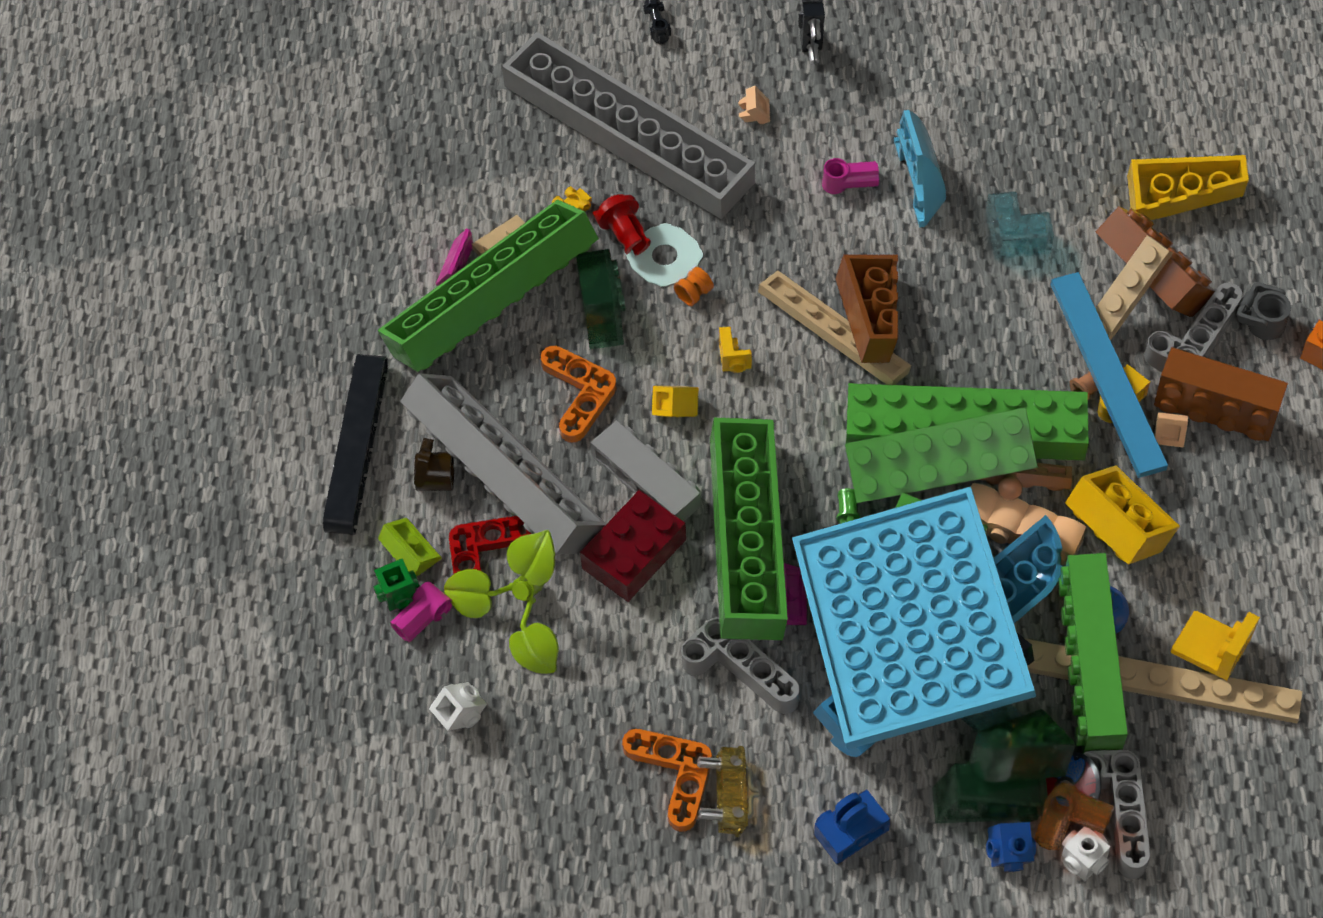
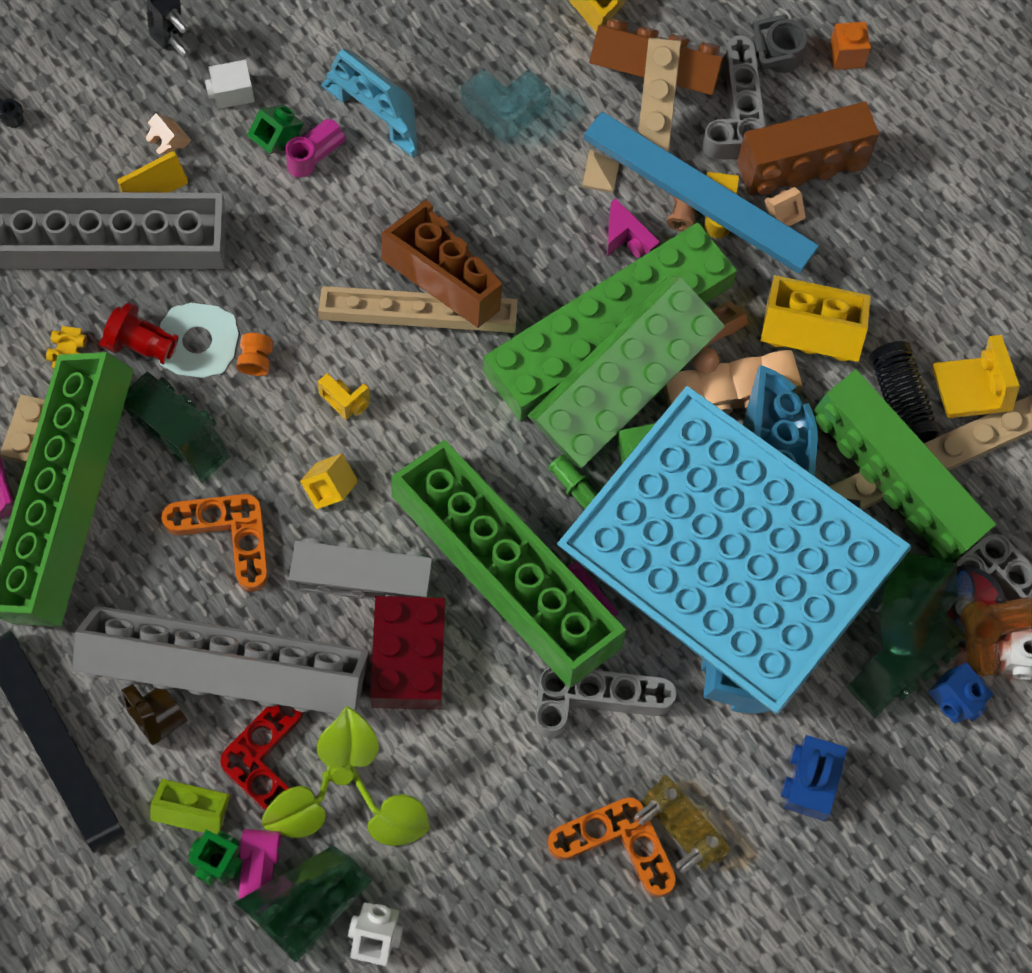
camera: 45 degrees left, 10 degrees up
(428, 651) = (305, 900): none -> clear green wedge
(726, 129) = (155, 177): none -> yellow slope
(826, 99) = (230, 84): none -> white brick
(831, 143) = (274, 128): none -> green brick
(1029, 367) = (626, 228): none -> dark pink slope
(1049, 319) = (600, 172): none -> tan slope
(1136, 639) = (928, 427): none -> black piece

